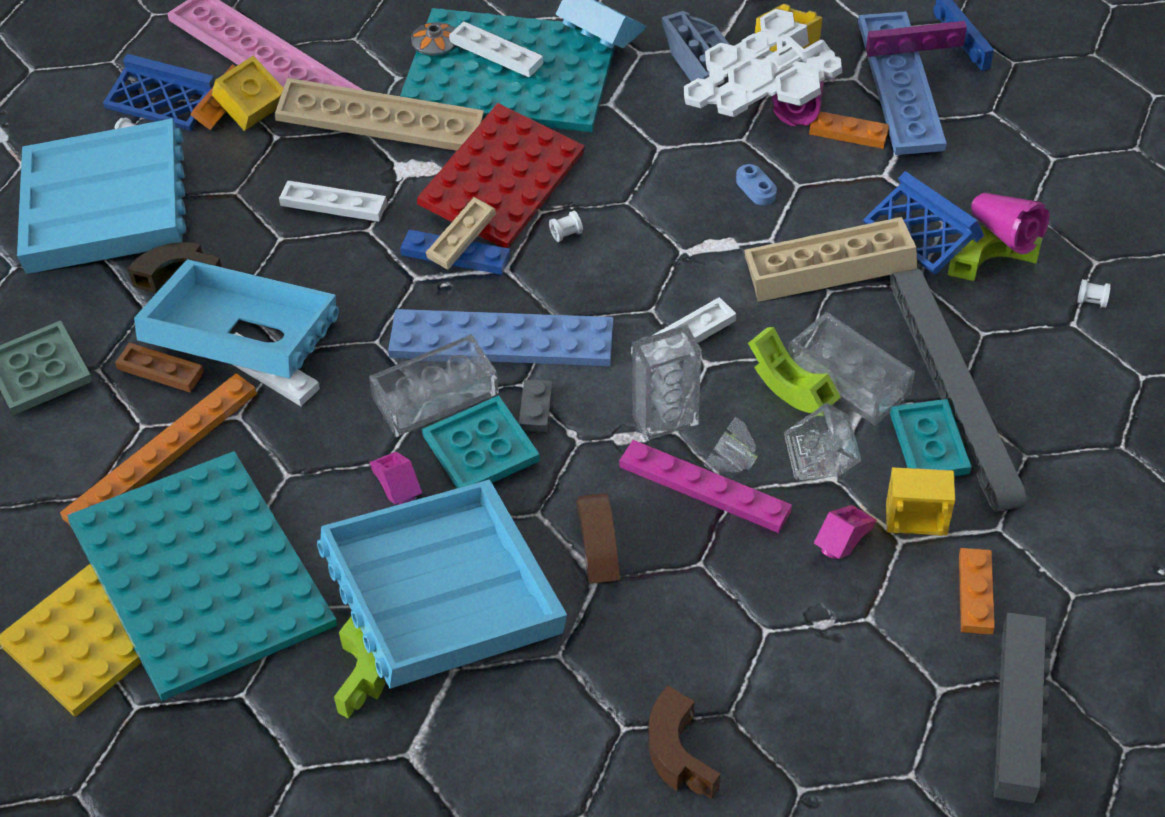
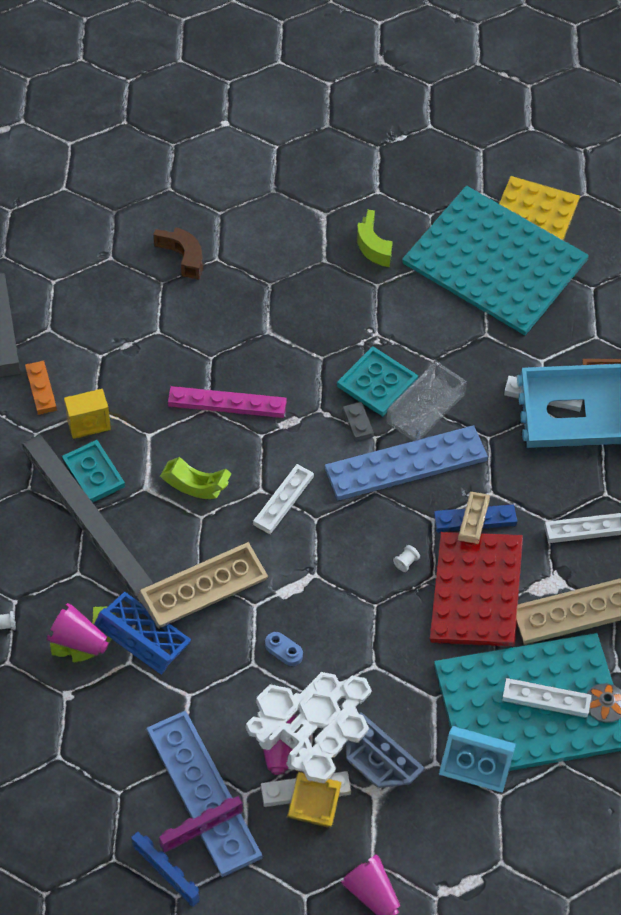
camera: 155 degrees right, 5 degrees up
(168, 444) = (573, 316): orange plate -> none
(396, 477) = (416, 340): dark pink arch -> none
(440, 582) = (352, 283): medium azure panel -> none
(598, 538) = (277, 336): reddish brown arch -> none
(666, 382) = (271, 419): clear brick -> none
(733, 450) = (215, 420): clear brick -> none
(822, 444) = (160, 443): clear slope -> none
(843, 531) = (128, 392): dark pink arch -> none
(850, 129) = (224, 729): orange plate -> none
(861, 371) = (160, 497): clear brick -> none

